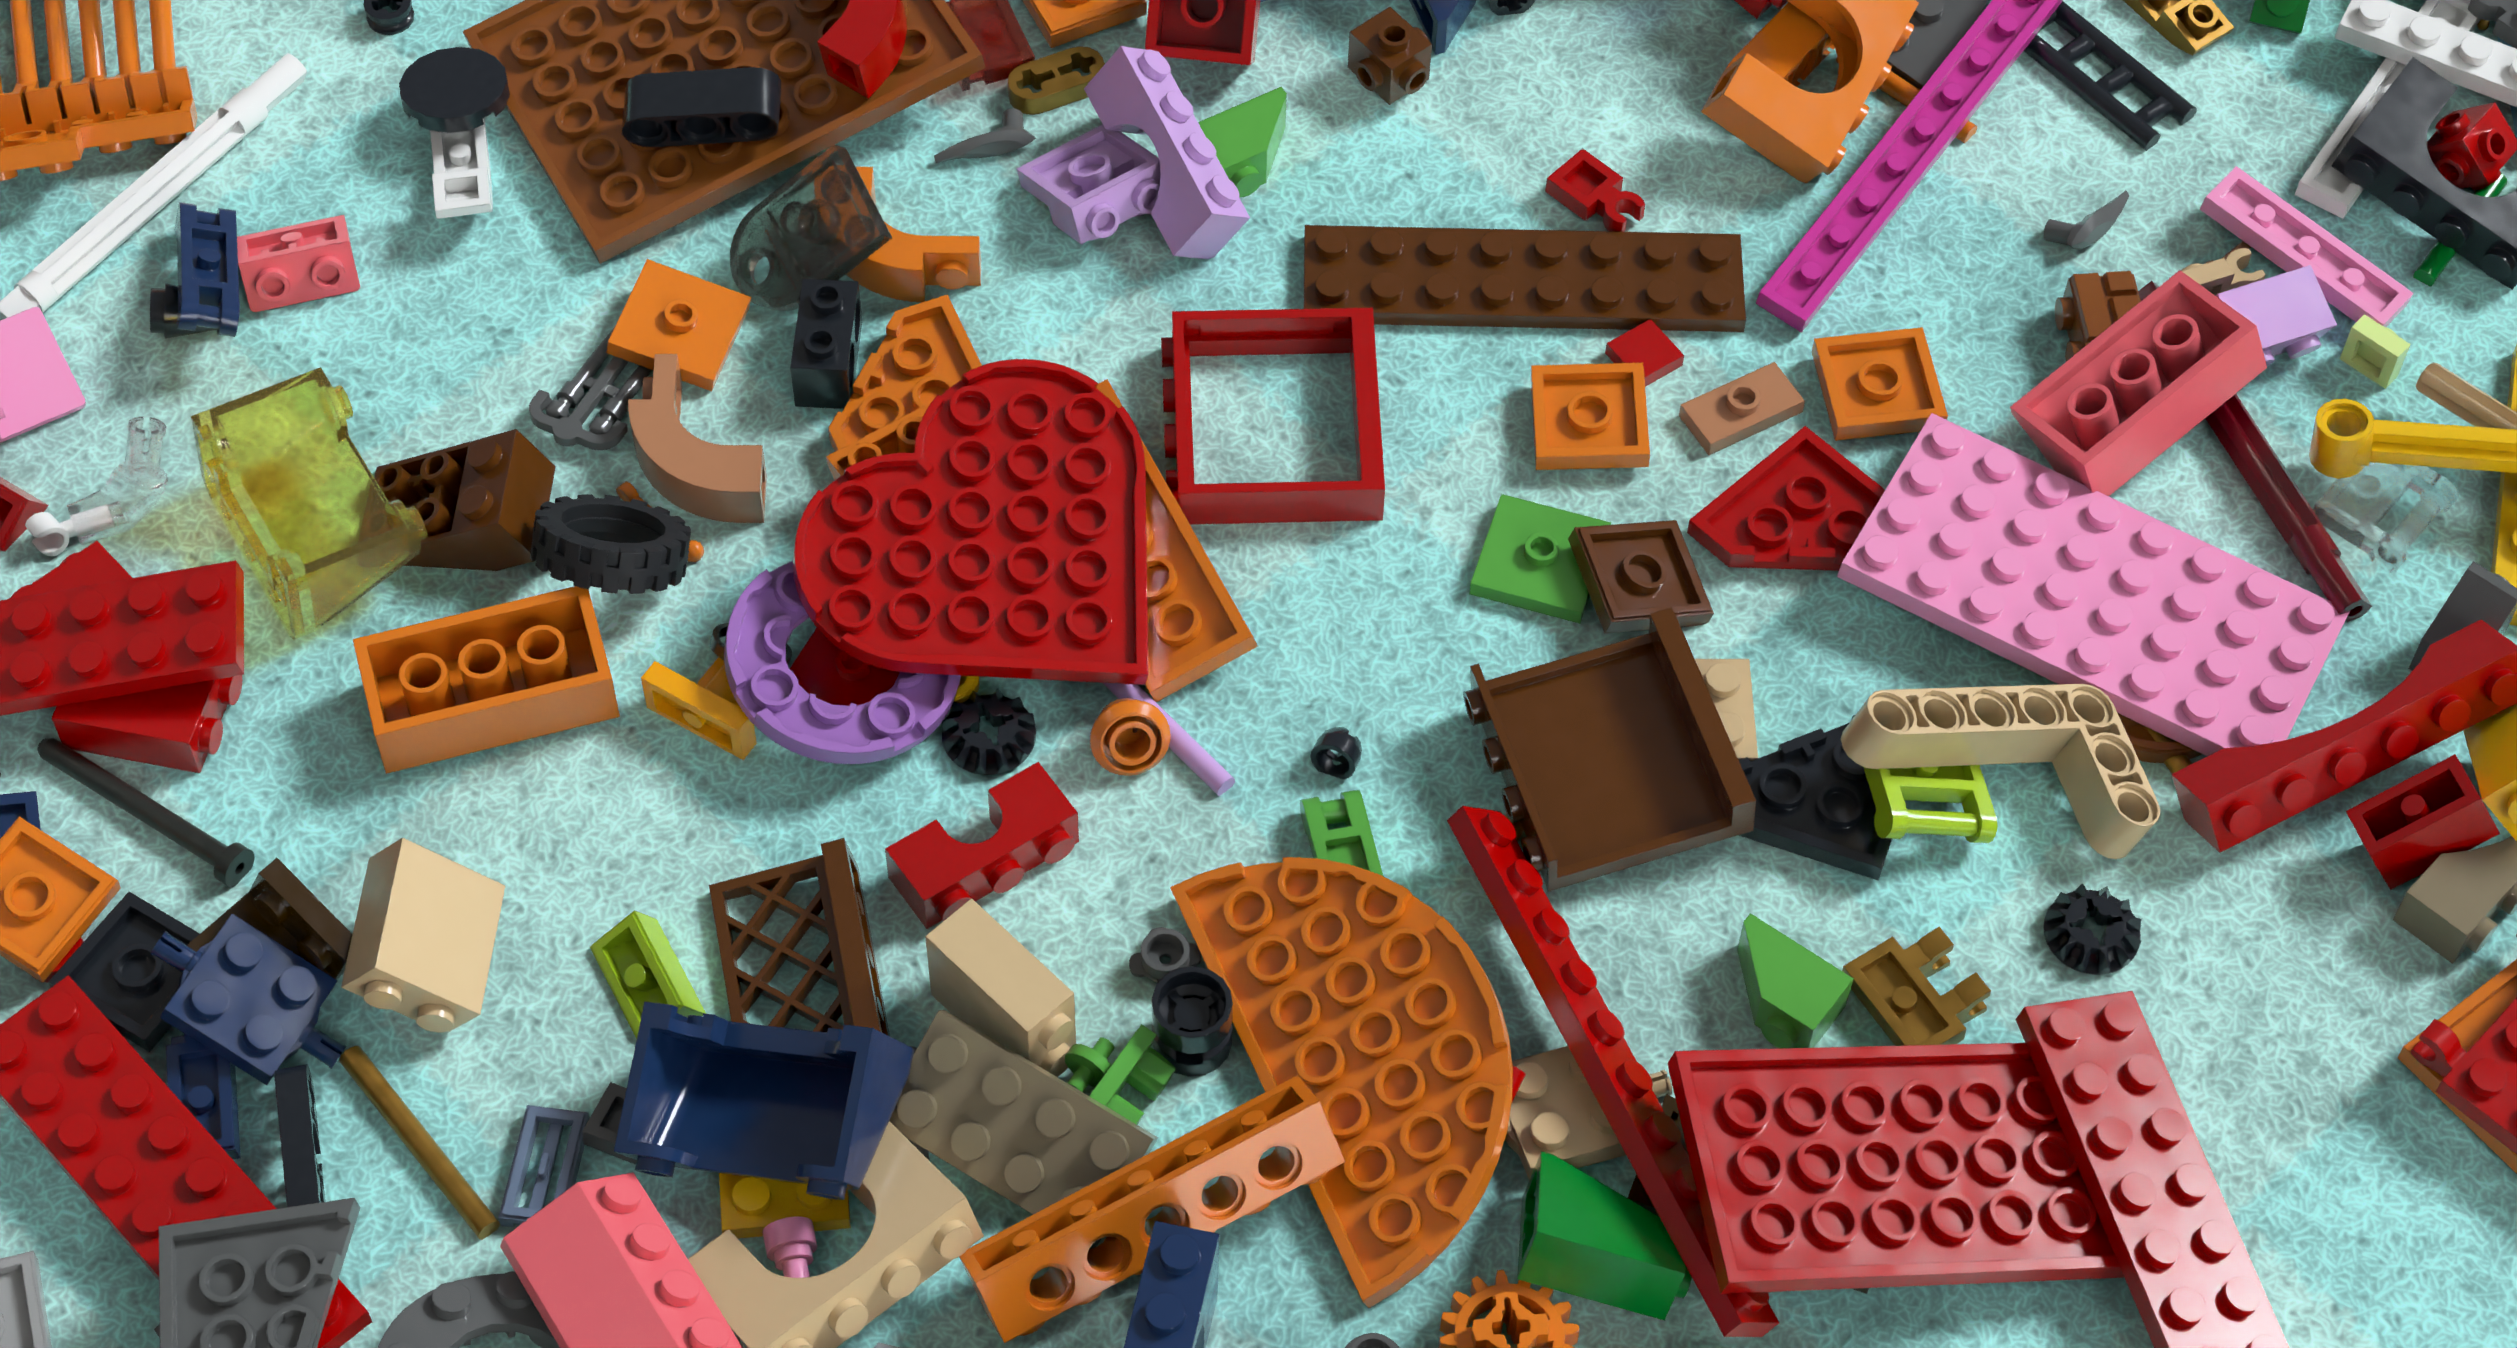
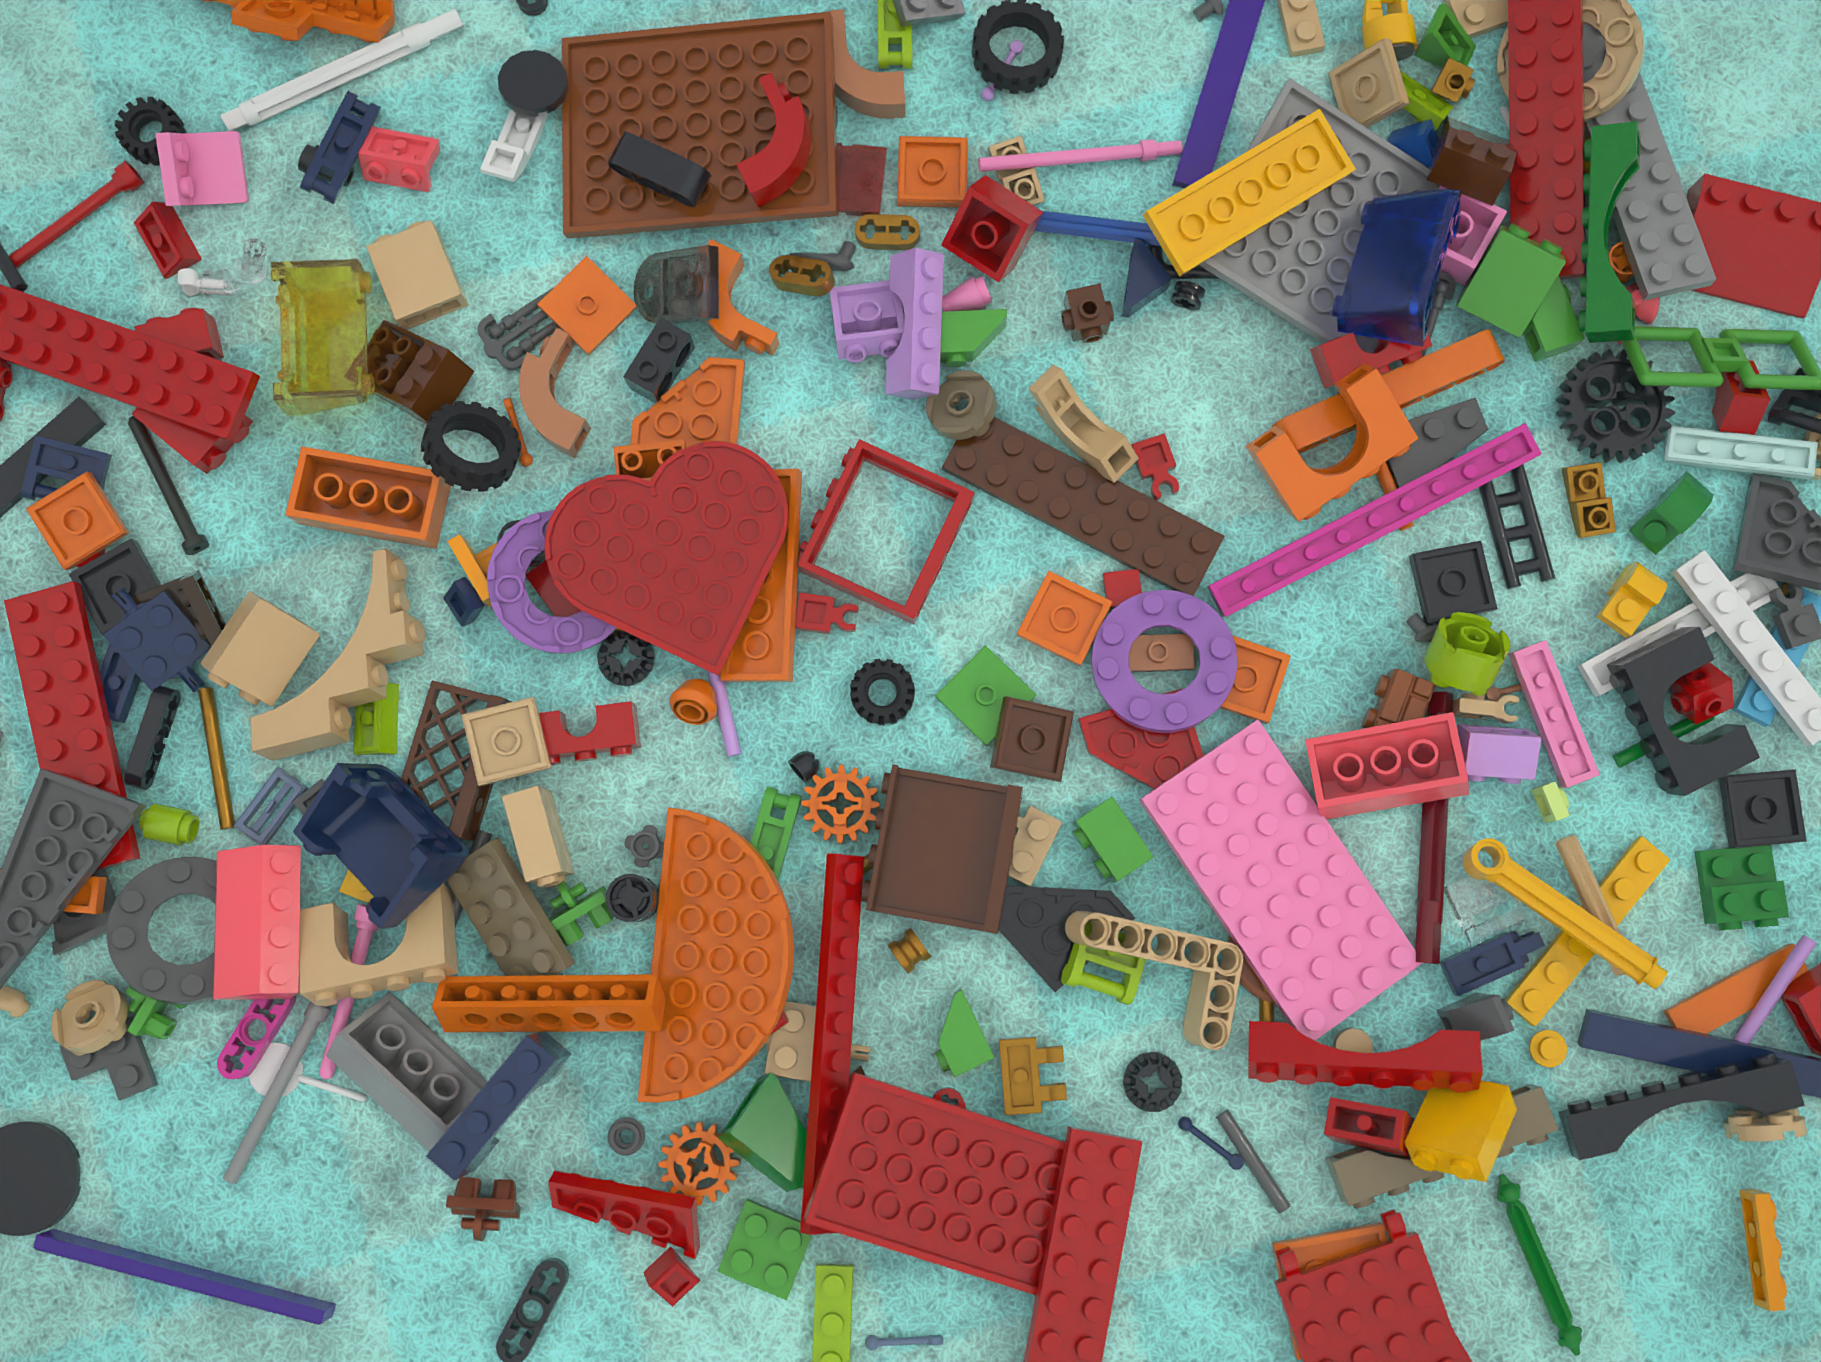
camera: 30 degrees right, 25 degrees up
(392, 1259) = (169, 824): none -> lime brick
(407, 382) = (417, 274): none -> tan brick
(566, 983) = (357, 677): none -> tan arch
(704, 757) = (463, 601): none -> dark blue plate
(883, 885) = (506, 741): none -> tan plate
(969, 169) = (801, 276): none -> pearl gold beam
(1219, 94) = (967, 296): none -> bright pink cone
(1246, 556) = (818, 612): none -> red plate
(1314, 230) = (973, 419): none -> dark tan plate
(1393, 583) = (882, 670): none -> black tyre
(1420, 775) = (840, 788): none -> orange gear
(1463, 190) = (1079, 428): none -> tan arch
(1640, 913) = (909, 950): none -> pearl gold wheel
(1753, 463) = (1164, 711): none -> medium lavender plate
(1832, 646) = (1111, 840): none -> bright green brick
(2071, 164) = (1452, 581): none -> black plate
(2147, 219) = (1466, 653): none -> lime brick
(2274, 980) = (1235, 1161): none -> dark blue hinge
(2299, 965) = (1253, 1161): none -> dark grey bar
(2307, 78) = (1631, 598): none -> yellow brick
(2431, 570) = (1489, 960): none -> dark blue hinge

